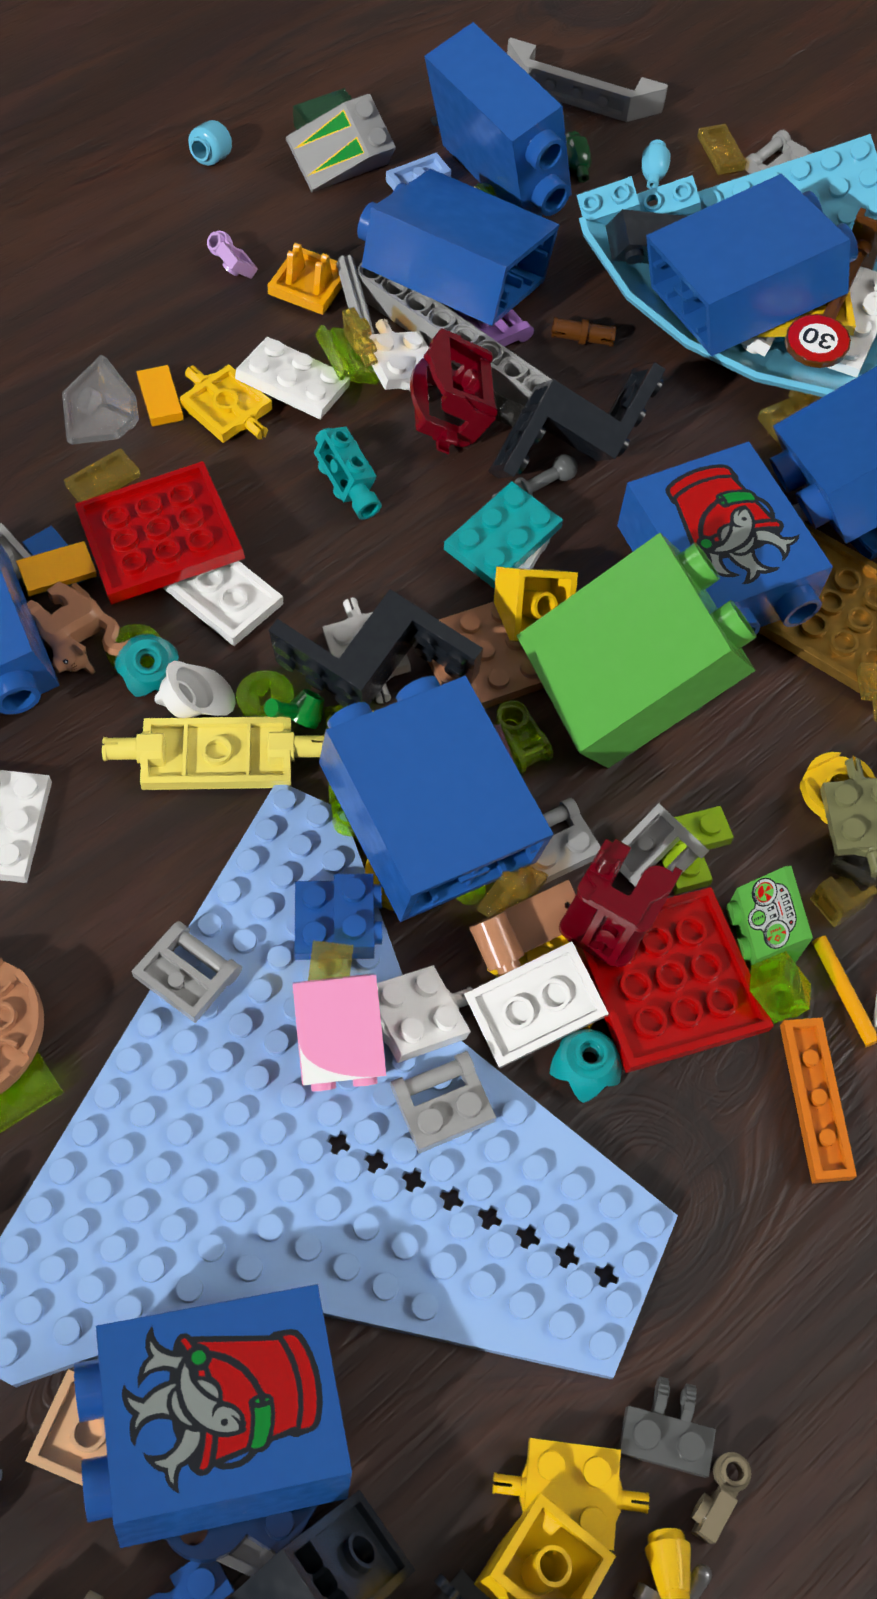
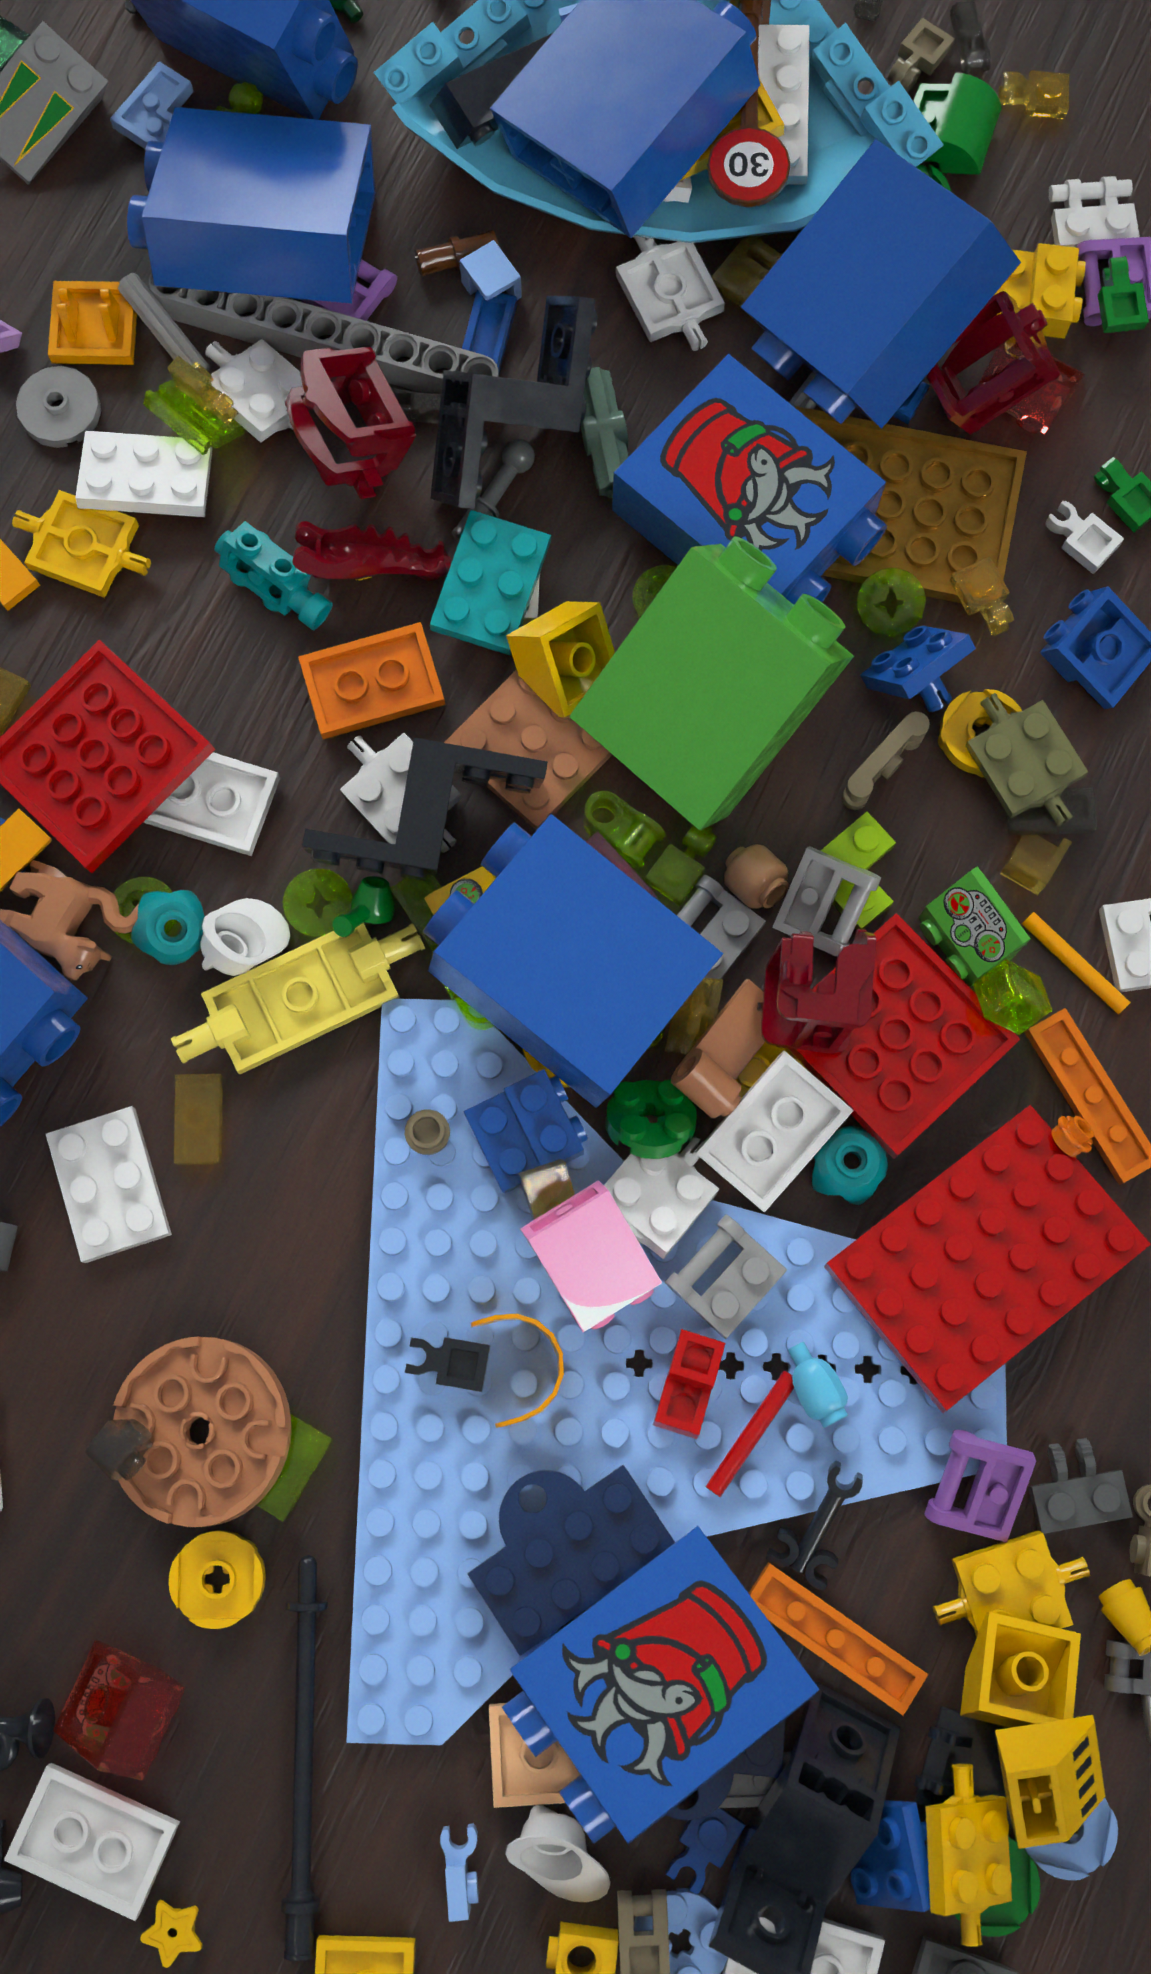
camera: 20 degrees left, 15 degrees up
(54, 1533) = (557, 1858): none -> white piece
(93, 807) = (198, 1119): none -> clear yellow plate
(178, 980) = (397, 1276): light grey plate -> none
(189, 1069) = (458, 1363): none -> black plate
(198, 1259) = (566, 1552): none -> dark blue plate
(257, 317) = (70, 419): none -> light grey plate
(259, 885) = (427, 1132): none -> dark tan plate
(263, 1119) = (496, 1318): none -> light orange piece
(370, 1174) = (689, 1384): none -> red slope
(376, 562) = (371, 680): none -> orange plate
(395, 1460) = (837, 1639): none -> orange plate
(400, 1369) = (805, 1555): none -> black bar
(403, 1240) = (751, 1434): none -> red bar
(417, 483) = (364, 553): none -> dark red animal
(432, 936) = (656, 1098): none -> green plate
(477, 1225) = (817, 1387): none -> medium azure plant
(551, 788) = (677, 871): none -> clear neon green plate
(589, 379) = (490, 326): none -> blue tile
(592, 1391) = (994, 1492): none -> medium lavender plate
(599, 347) = (489, 272): none -> light blue panel
(610, 814) = (756, 876): none -> medium nougat head
(636, 464) = (603, 429): none -> sand green piece
(670, 1188) = (986, 1258): none -> red plate
(726, 407) = (670, 290): none -> white plate
(751, 773) = (885, 759): none -> dark tan plate
(787, 1121) = (1073, 1135): none -> orange plate
(806, 717) = (918, 664): none -> blue plate
(818, 658) = (905, 587): none -> clear neon green gear

